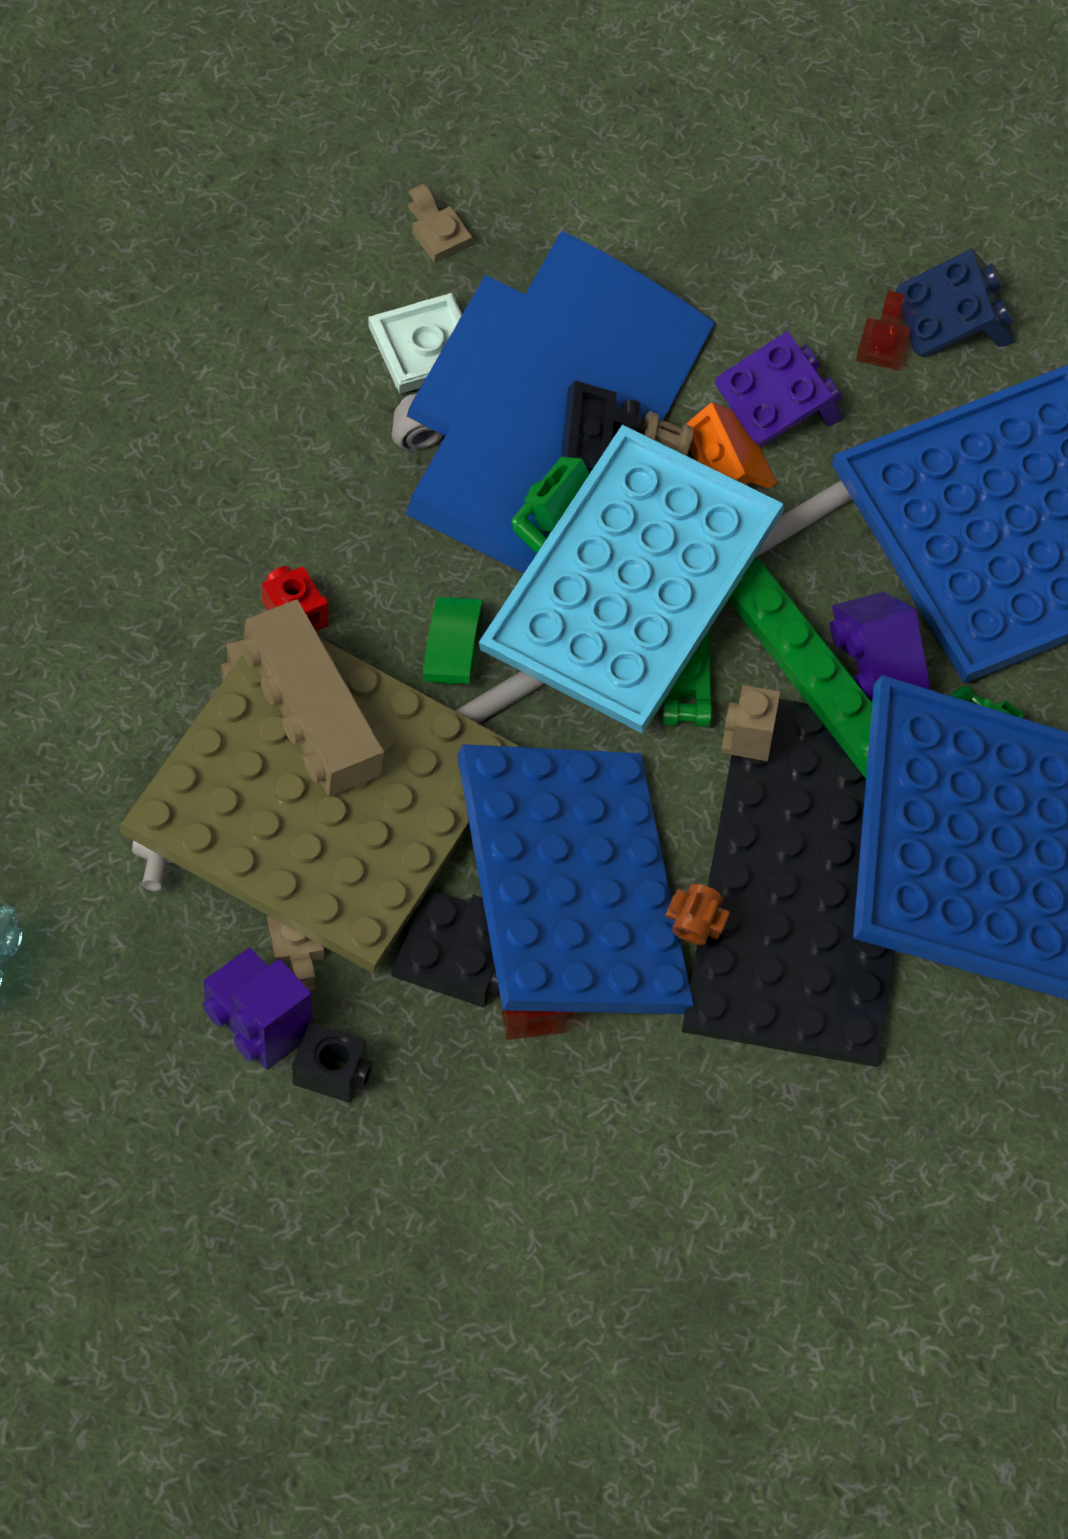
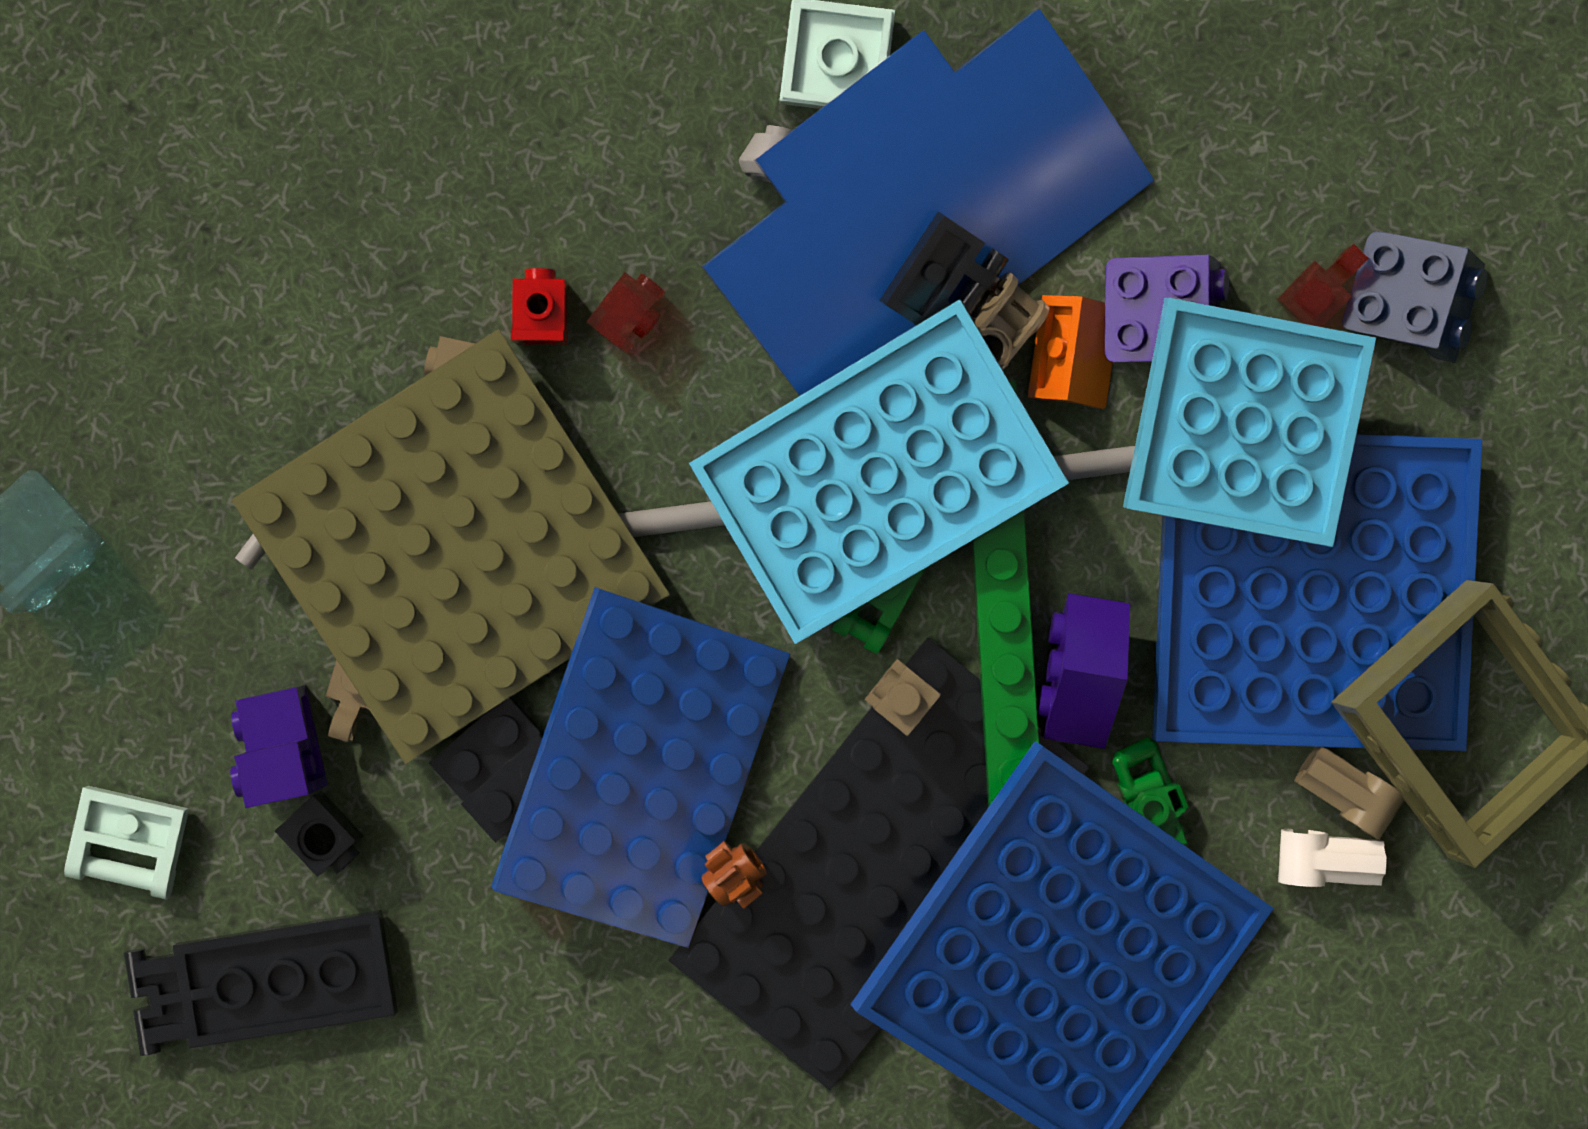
camera: 30 degrees right, 30 degrees up
(160, 1138) = (131, 826): none -> light aqua plate
(312, 698) = (474, 464): dark tan brick -> none
(344, 1209) = (263, 982): none -> black hinge
(365, 574) = (628, 311): none -> clear red brick
(452, 640) = (674, 433): green slope -> none
(549, 500) = (842, 342): green piece -> none
(890, 416) = (1249, 422): none -> medium azure plate

